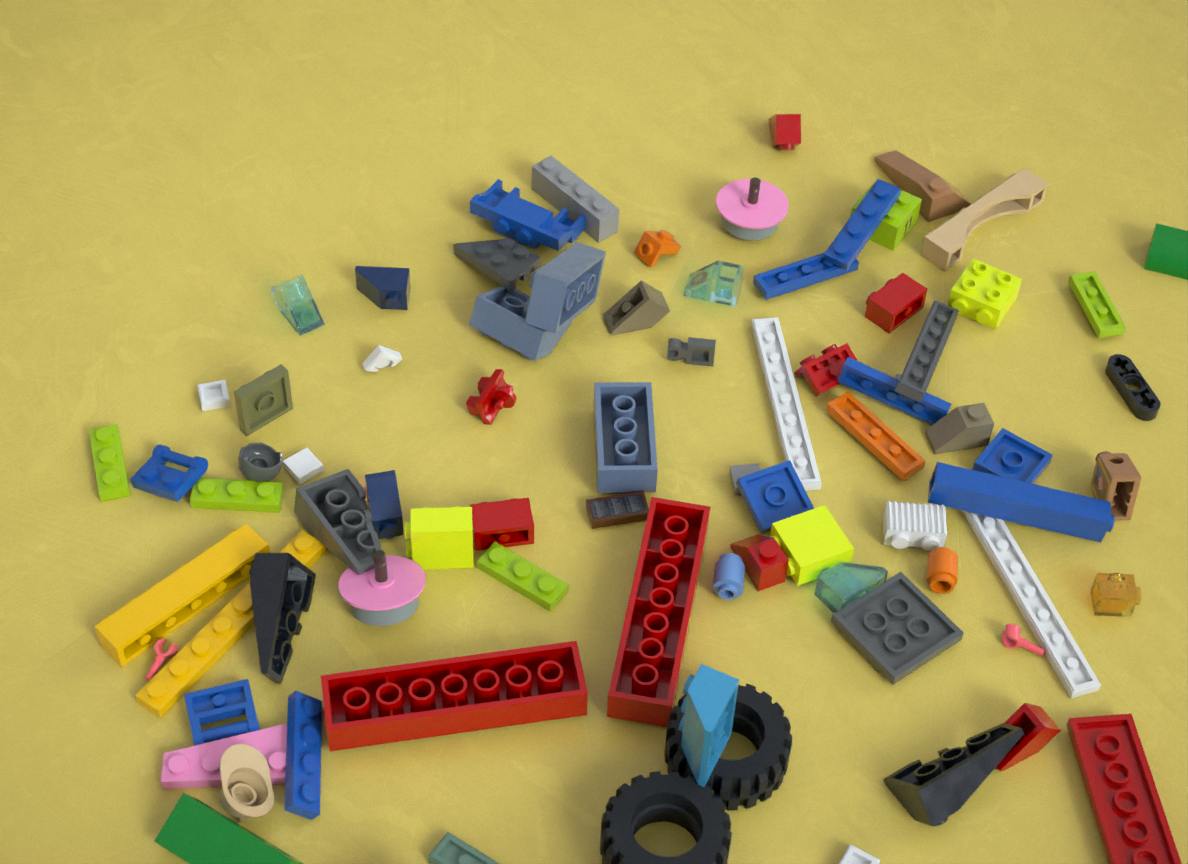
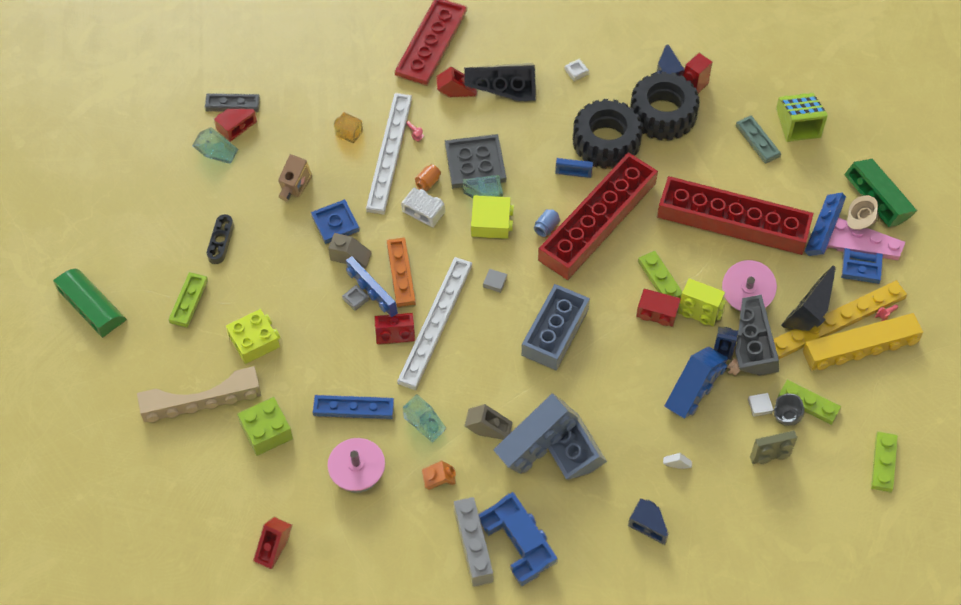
camera: 150 degrees left, 10 degrees up
(168, 481) = (853, 427): blue plate -> none
(213, 395) = (800, 486): white tile -> none
(297, 304) = (718, 533): clear light blue slope -> none
(399, 430) = (696, 381): none -> blue brick
(493, 397) = (627, 394): red hips -> none
(499, 259) = (557, 506): dark grey wing -> none
(617, 509) = (592, 292): tile -> none
(696, 351) = (470, 375): dark grey plate -> none
(707, 719) = (627, 103): dark azure slope -> none
(754, 672) = (574, 167): none -> blue tile
(763, 560) = (522, 226): red slope -> none
(773, 495) = (489, 255): blue plate -> none
(862, 224) = (296, 407): blue plate -> none
(895, 302) = (315, 354): red brick -> none
(927, 351) = (327, 303): dark grey tile -> none
(937, 194) = (211, 445): medium nougat wedge -> none
(1020, 502) = (358, 189): blue brick -> none

